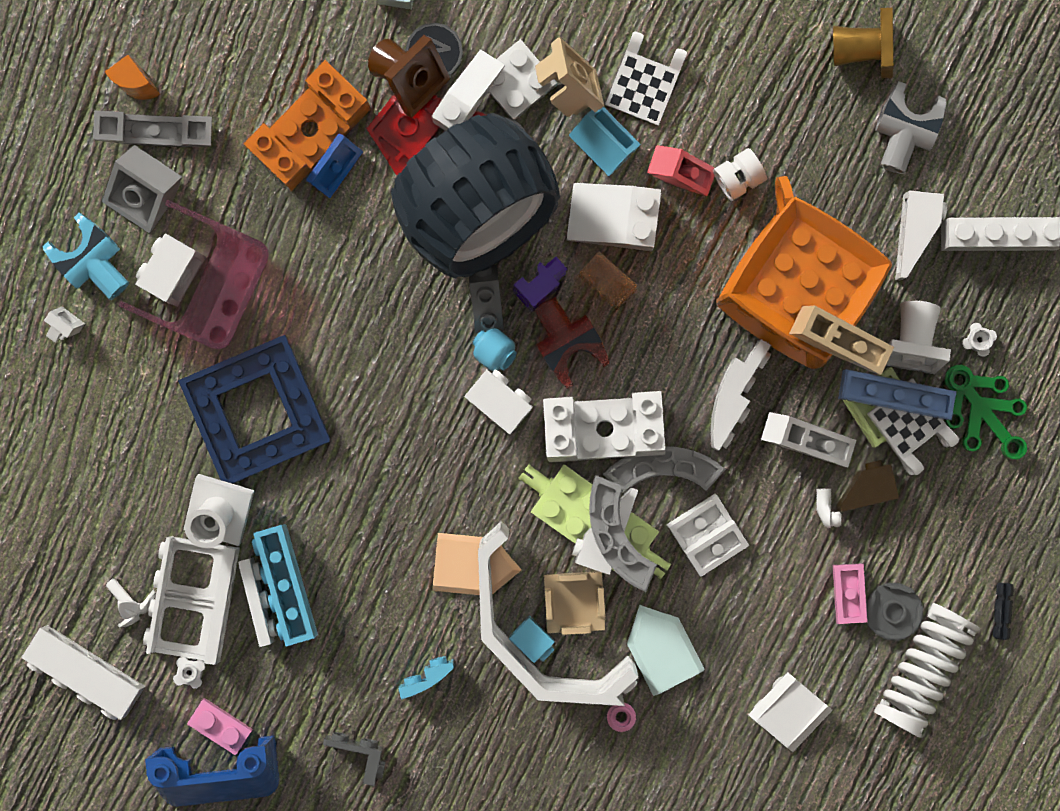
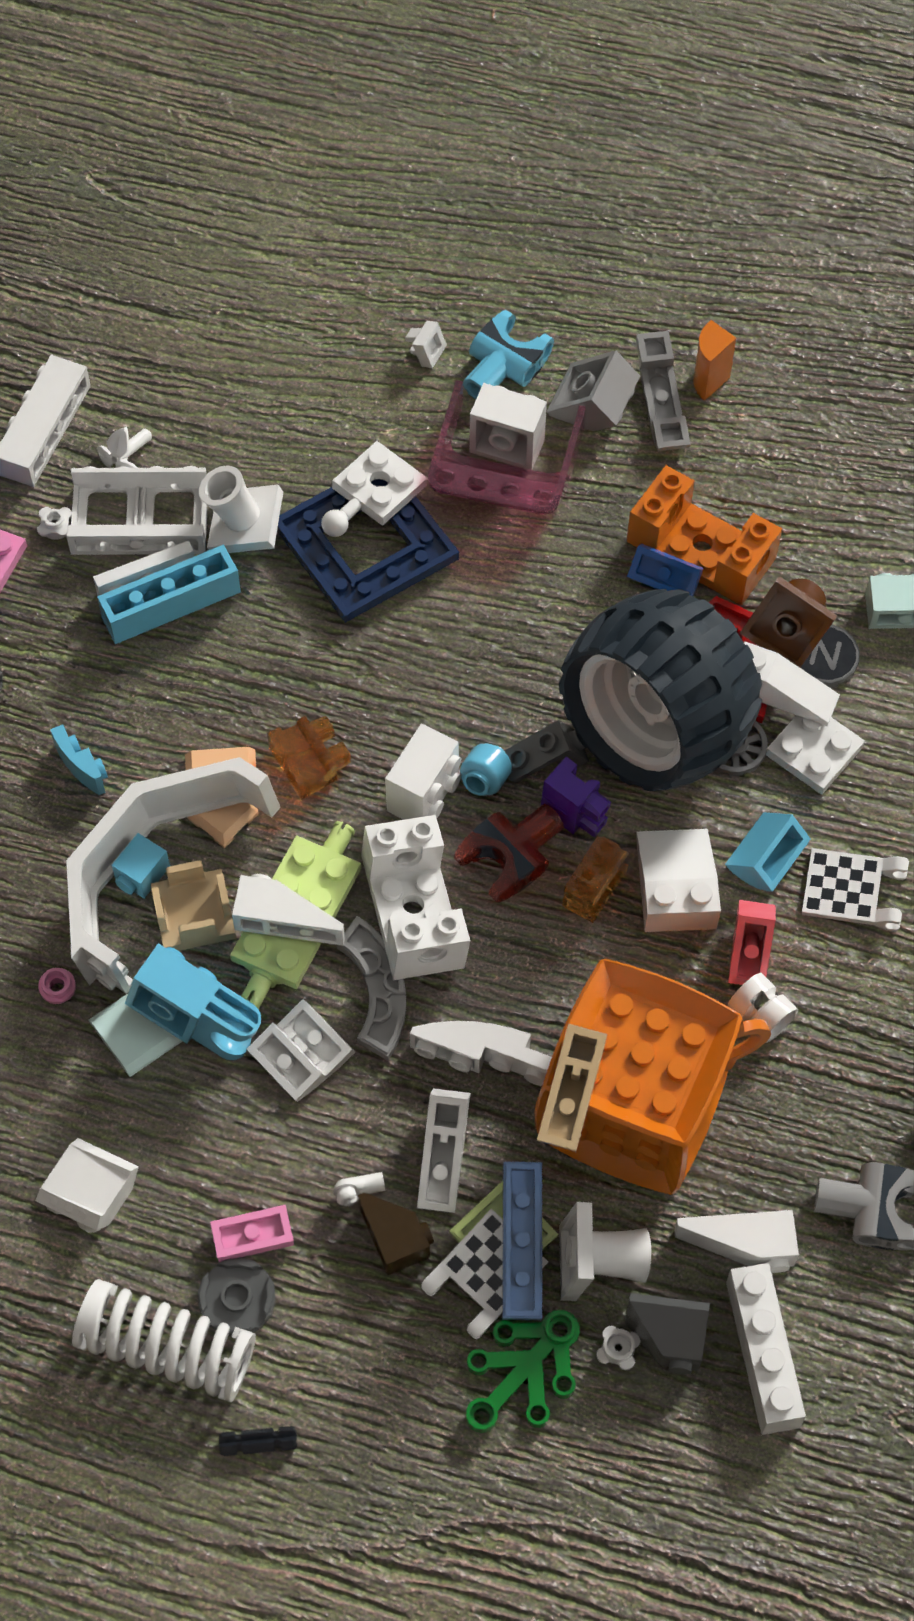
camera: 80 degrees right, 25 degrees down
(208, 410) = (377, 502): none -> white plate
(442, 494) = (305, 757): none -> clear orange hips
(577, 75) = (832, 792): tan panel -> none
(611, 538) = (277, 907): light grey tile -> none
(670, 615) = (193, 1004): none -> medium azure brick
(982, 298) = (669, 1330): none -> dark grey slope

